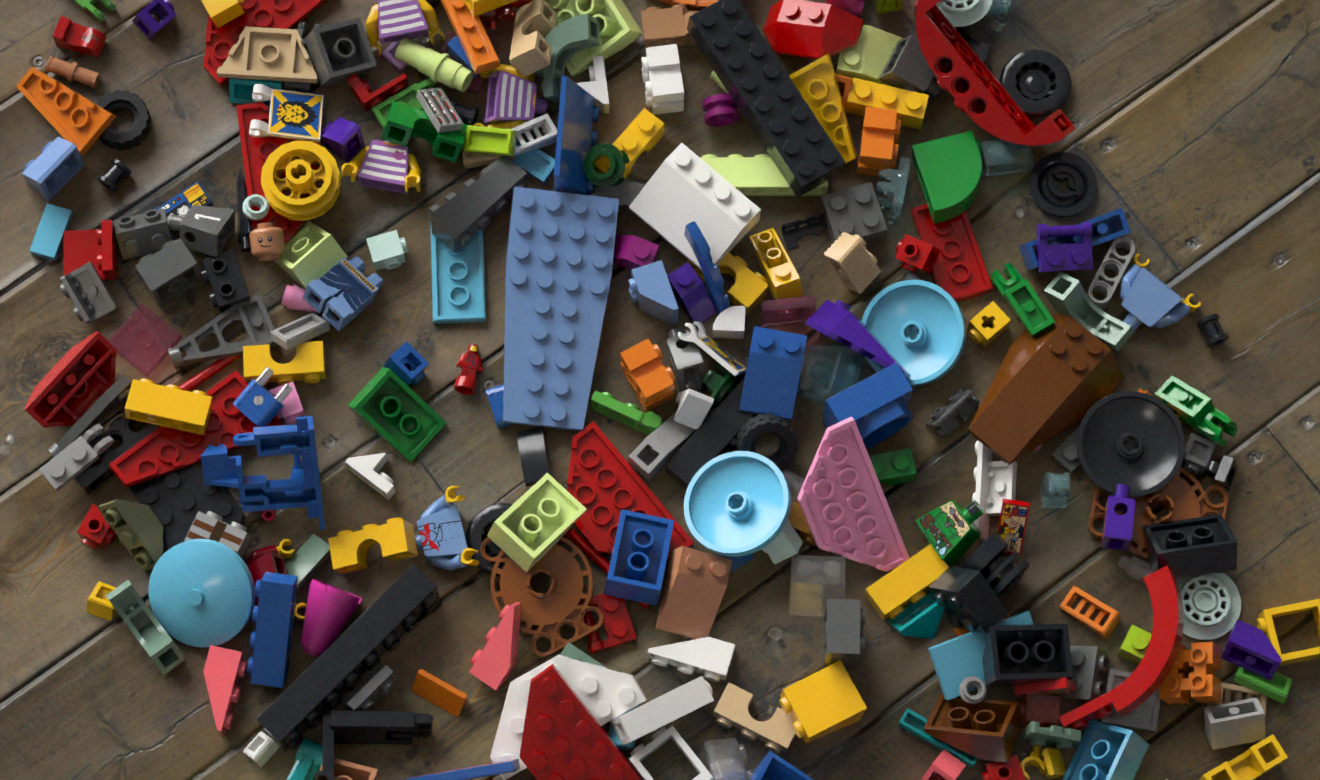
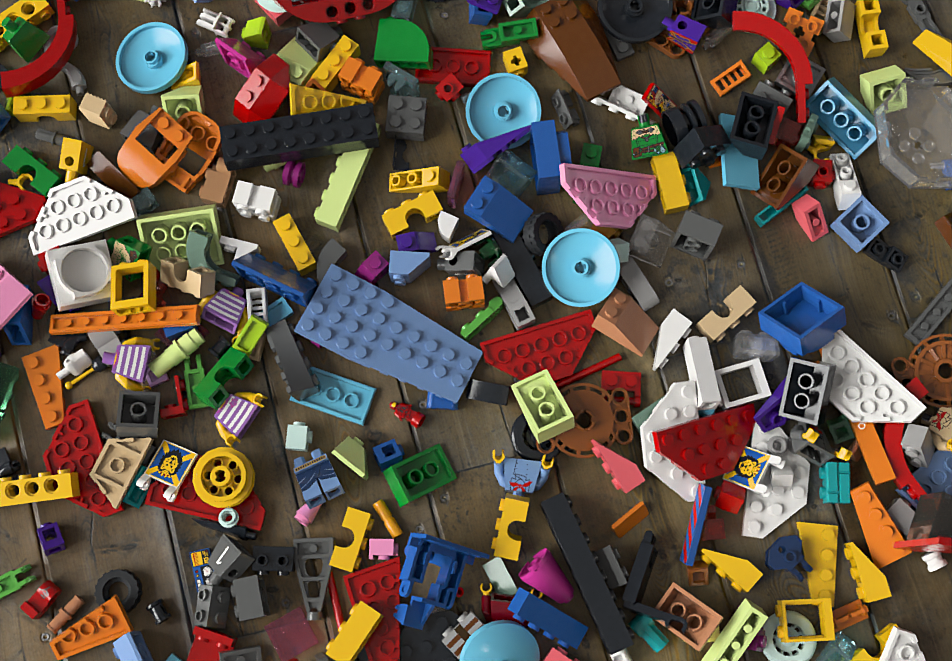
camera: 65 degrees left, 5 degrees up
(259, 402) = (375, 568): blue piece -> none
(267, 242) = (259, 518): nougat head -> none
(299, 331) = (333, 520): light grey tile -> none
(310, 254) = (279, 493): yellowish green slope -> none
(329, 395) = (386, 516): none -> light orange piece
(343, 138) = (202, 437): dark purple slope -> none
(367, 470) = (452, 511): white slope -> none
(386, 323) = (353, 455): none -> yellowish green slope
(439, 110) = (213, 361): tile -> none
(617, 159) = (304, 251): dark green piece -> none
(639, 557) = (589, 348): blue slope -> none
(691, 191) = (360, 215): white slope -> none
(710, 271) = (413, 222): blue tile -> none
(750, 589) = (637, 285): none -> light grey beam
(823, 702) = (737, 265): yellow slope -> none
(852, 262) = (439, 129): tan brick -> none
(979, 686) = (764, 165): light grey plate -> none
(1055, 490) = (644, 65): clear light blue leg -> none

